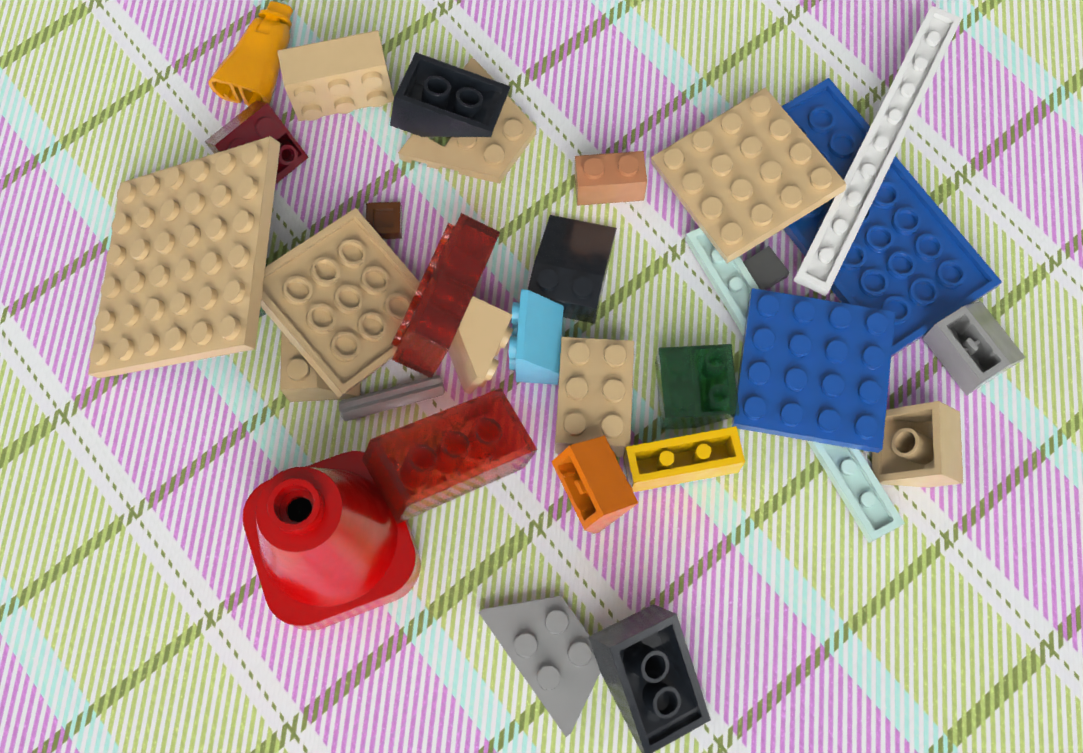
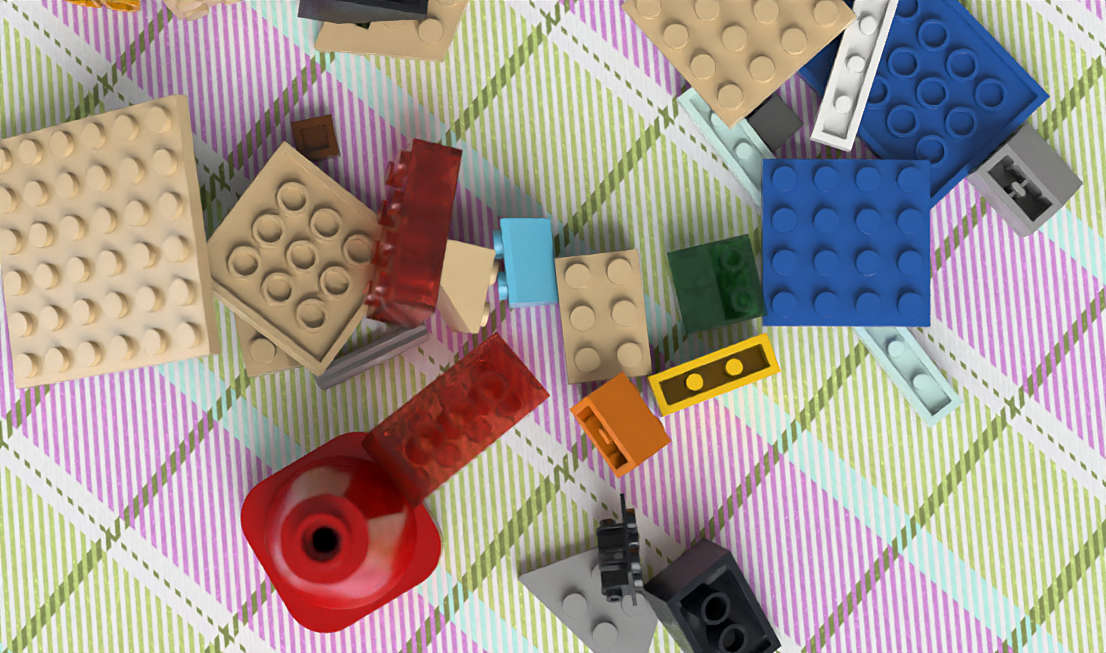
camera: 15 degrees left, 15 degrees up
(255, 124) = (138, 65): dark red slope -> none
(573, 266) = (549, 158): black slope -> none
(574, 603) = (620, 556): none -> black hinge
(610, 178) = (576, 40): nougat brick -> none
(920, 447) = (973, 311): tan slope -> none

